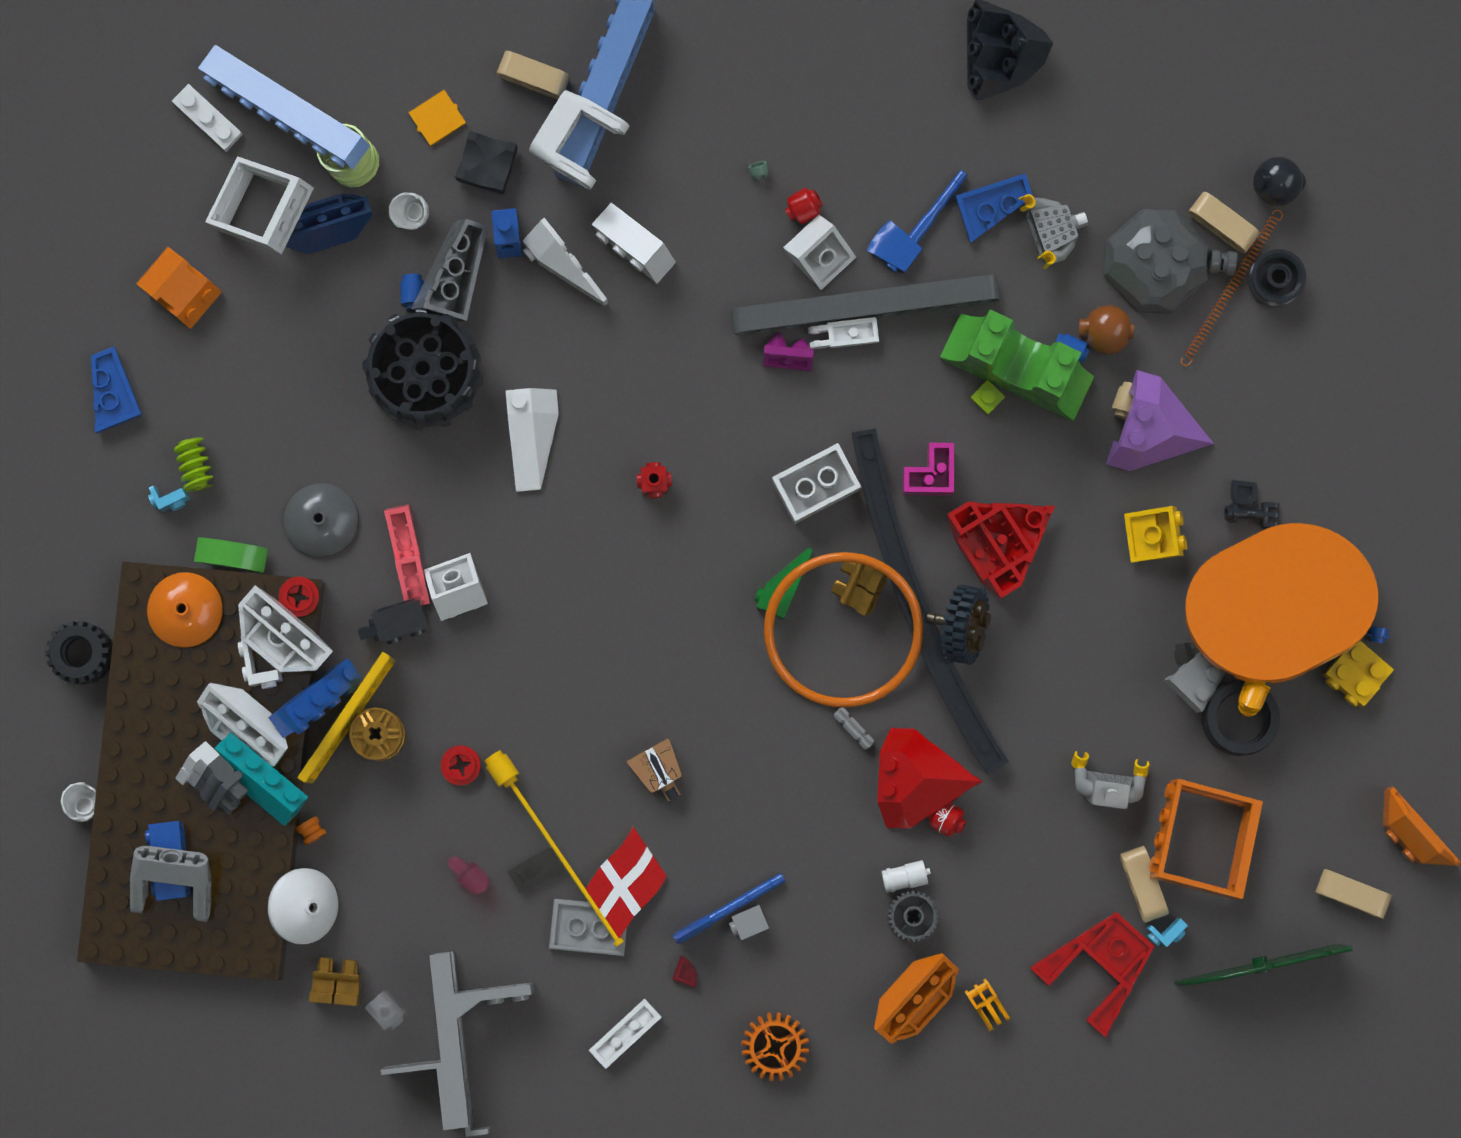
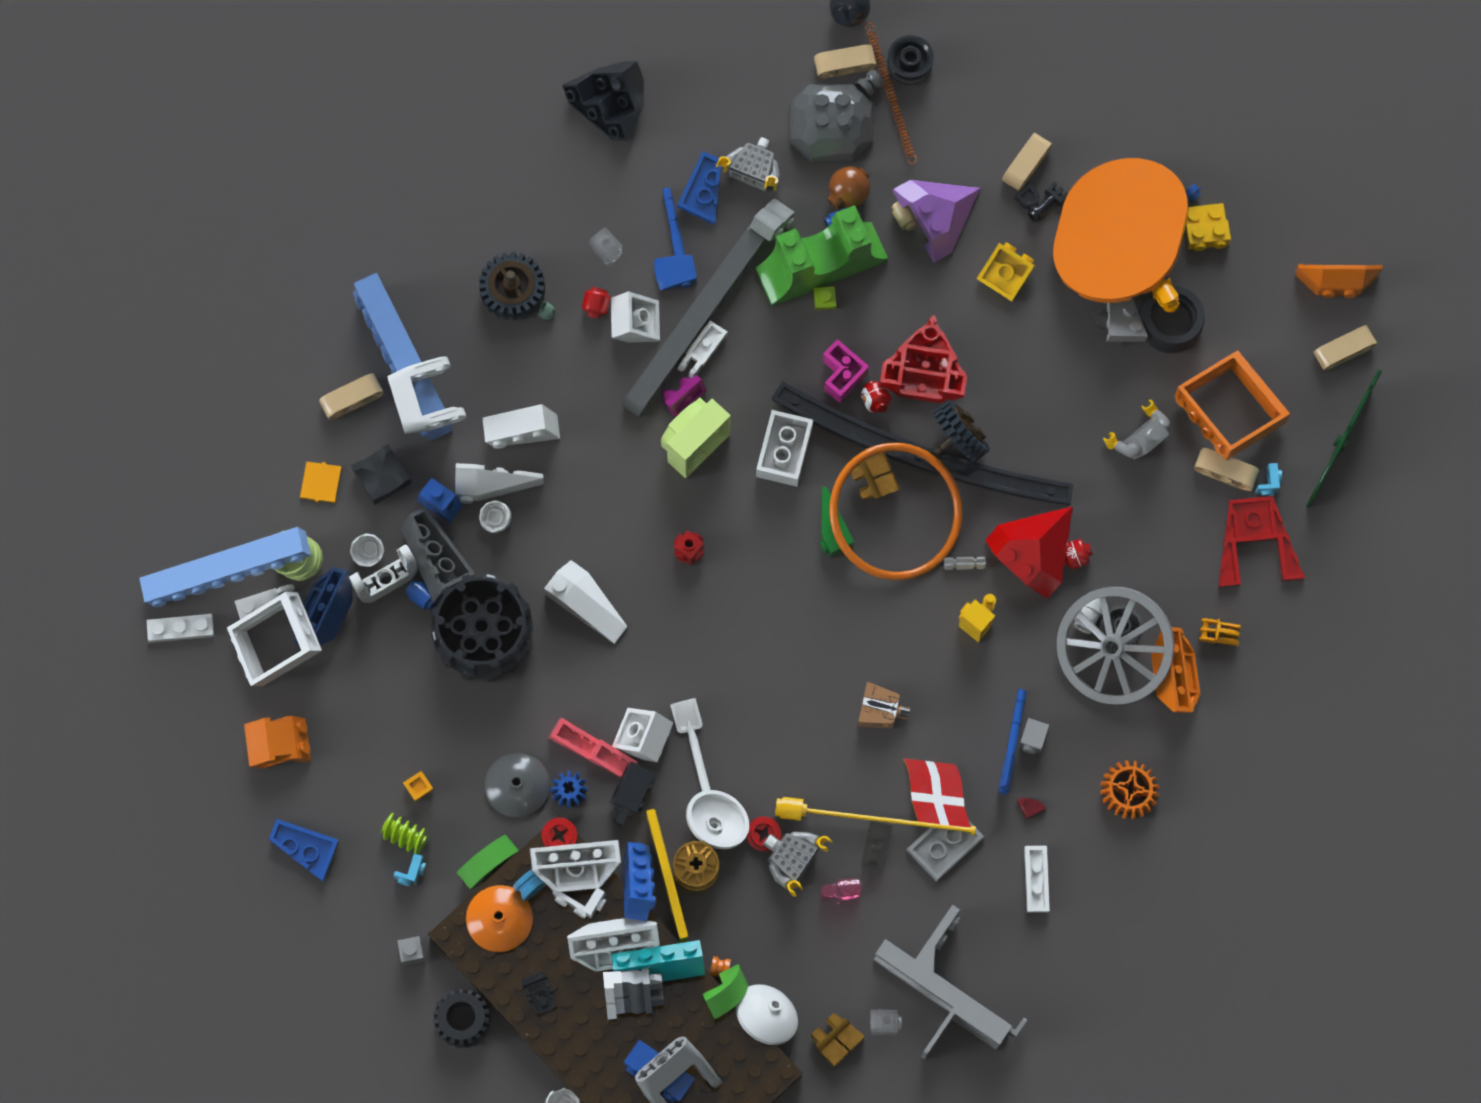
camera: 50 degrees left, 10 degrees down
(99, 559) = (411, 951): none -> light grey brick
(149, 700) = (539, 993): none -> black hand
(227, 609) = (529, 885): none -> dark azure wheel
(245, 438) = (418, 786): none -> light orange plate
(285, 861) = (729, 993): none -> bright green brick
(286, 162) = (249, 604): none -> white hinge
(345, 563) = (561, 794): none -> blue gear
(424, 251) = (363, 586): none -> white connector
(447, 712) = (721, 812): none -> white dish
(459, 808) = (793, 856): none -> light grey torso
(504, 614) = (687, 720): none -> white piece
(535, 292) = (495, 516): none -> white hair
(753, 120) = (512, 286): none -> wheel
(755, 397) = (695, 435): none -> yellowish green container
(808, 783) = (977, 618): none -> yellow brick
(863, 168) = (606, 246): none -> clear brick
(894, 924) = (1071, 673): none -> light grey wheel
(933, 521) = (875, 397): none -> red head
(1016, 290) = (773, 220): none -> light grey brick
(1274, 463) = (1027, 162): none -> tan beam

